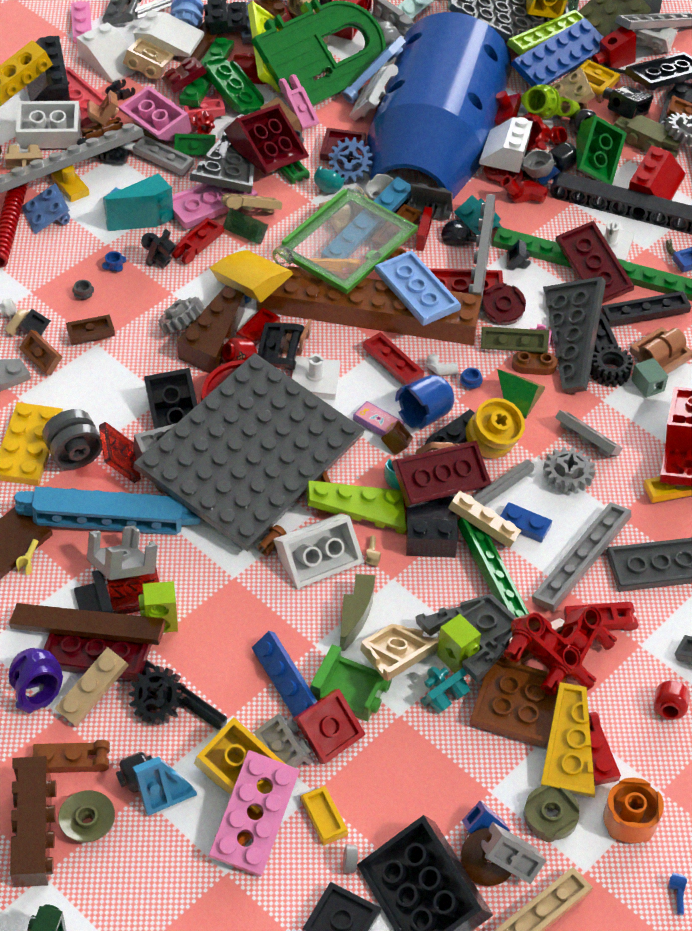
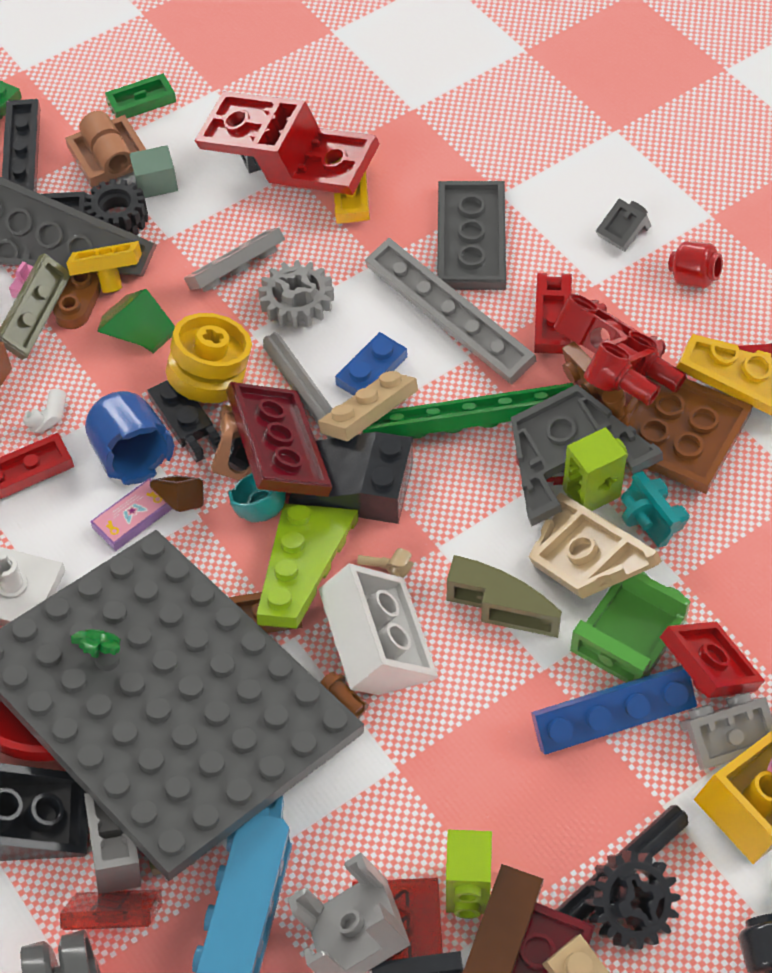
camera: 75 degrees left, 5 degrees up
(268, 405) = (94, 641): none -> green plant
(471, 378) = (85, 378): blue plate -> none
(560, 365) = (105, 262): none -> yellow tile

